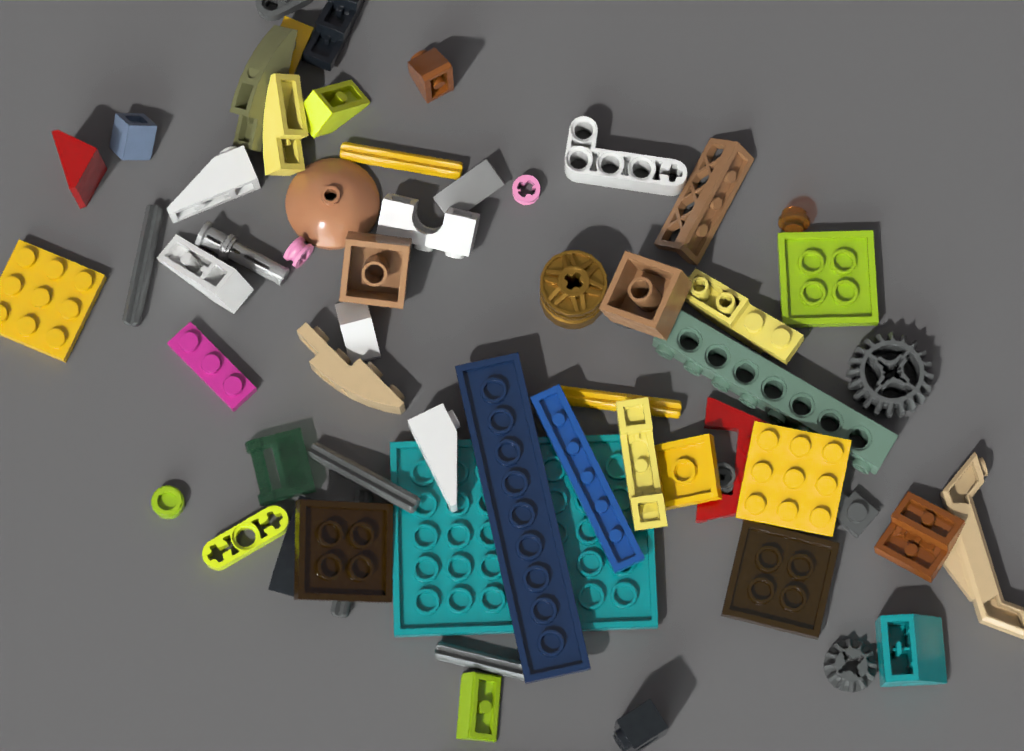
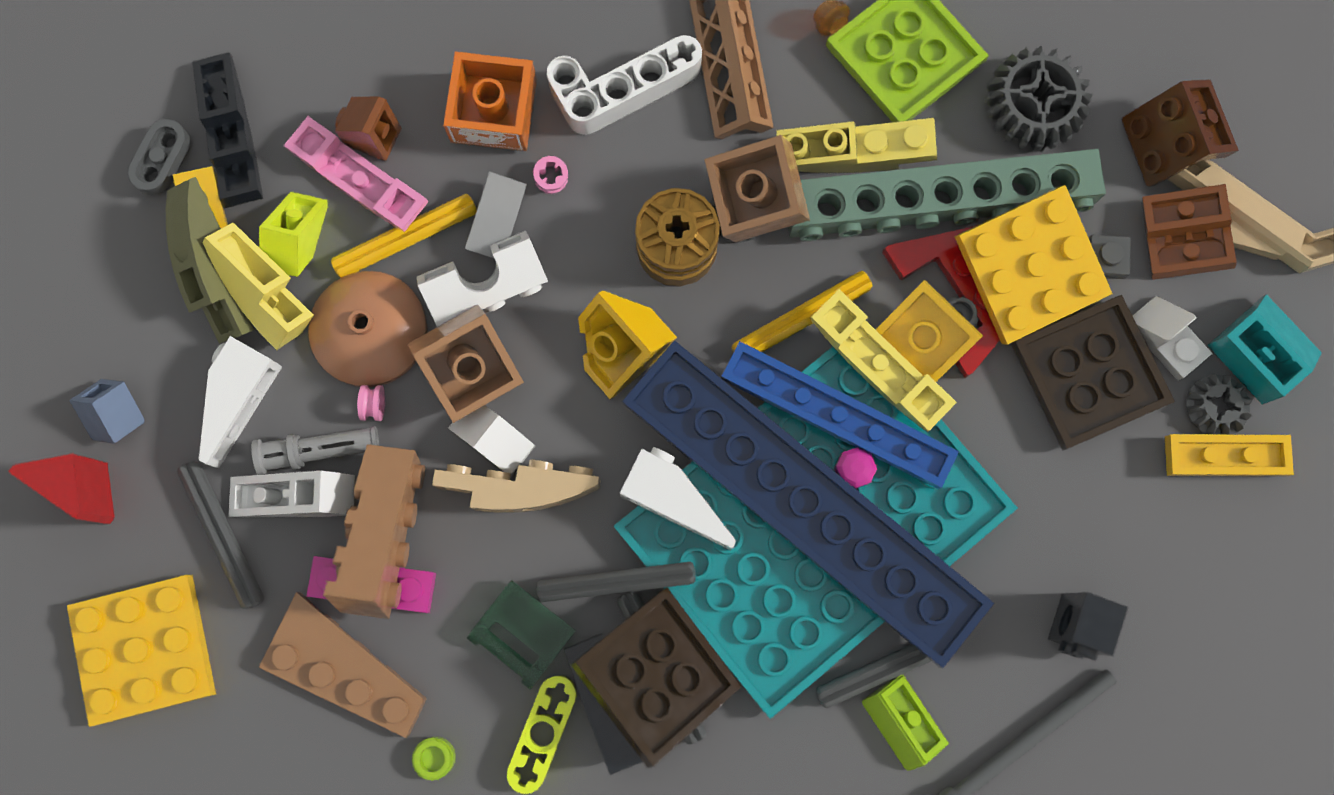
camera: 40 degrees left, 5 degrees up
(151, 399) = (333, 665): none -> medium nougat wing
(240, 334) = (377, 533): none -> medium nougat wedge
(400, 98) = (355, 175): none -> bright pink slope
(486, 329) = (621, 341): none -> yellow slope
(522, 114) = (490, 101): none -> orange brick
(571, 520) = (856, 467): none -> dark pink tile
(828, 700) = (1228, 455): none -> yellow plate
(853, 597) = (1170, 338): none -> white slope
(967, 464) = (1178, 130): none -> reddish brown bracket

